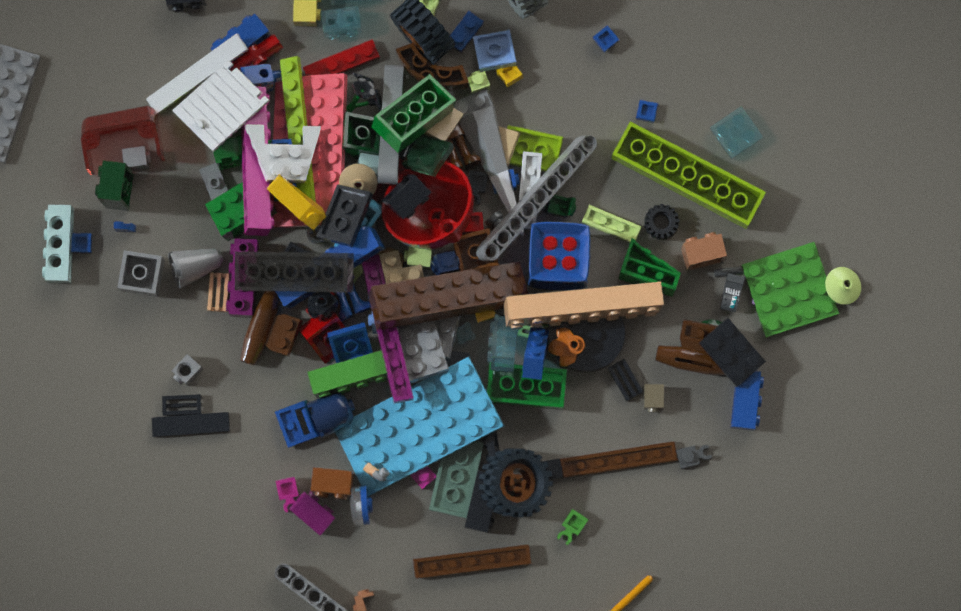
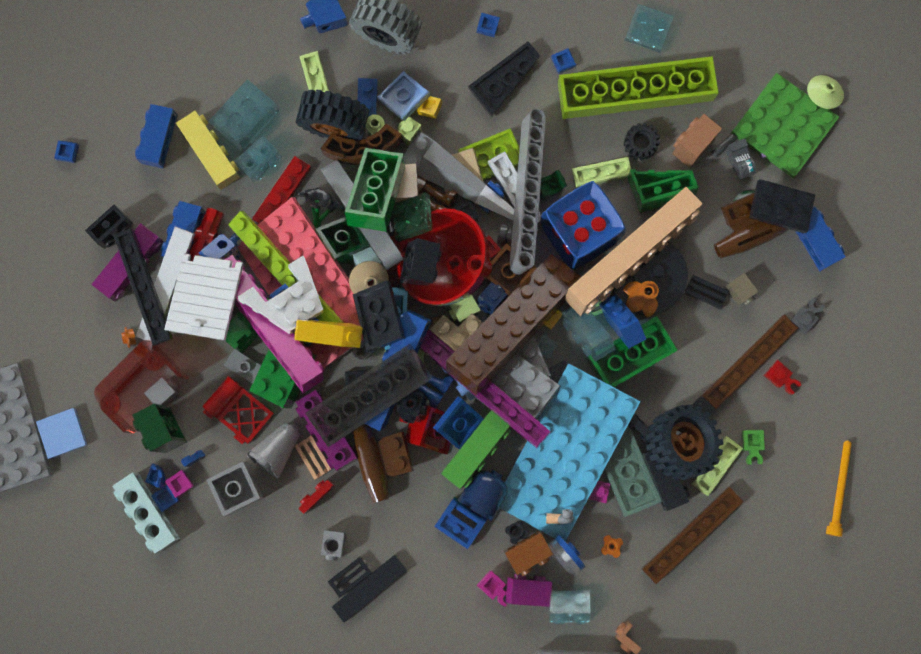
camera: 35 degrees left, 0 degrees up
(36, 135) = (61, 433): none -> light blue tile
(86, 221) = (156, 476): none -> blue tile
(100, 239) = (179, 483): none -> dark pink plate
(140, 95) = (128, 337): none -> orange plate
(179, 35) = (114, 278): none -> magenta brick
(179, 63) = (143, 286): none -> black tile
(182, 197) = (223, 401): none -> red piece
(191, 324) = (309, 502): none -> red plate
(332, 457) = (518, 526): none -> black plate
(335, 548) = (570, 607): none -> clear light blue bracket
(397, 525) = (611, 541): none -> orange plate
(453, 54) = (371, 123): none -> yellowish green brick
(538, 521) = (708, 481): none -> yellowish green tile
(584, 92) = (503, 78): none -> black wing
(635, 487) = (780, 375): none -> red plate

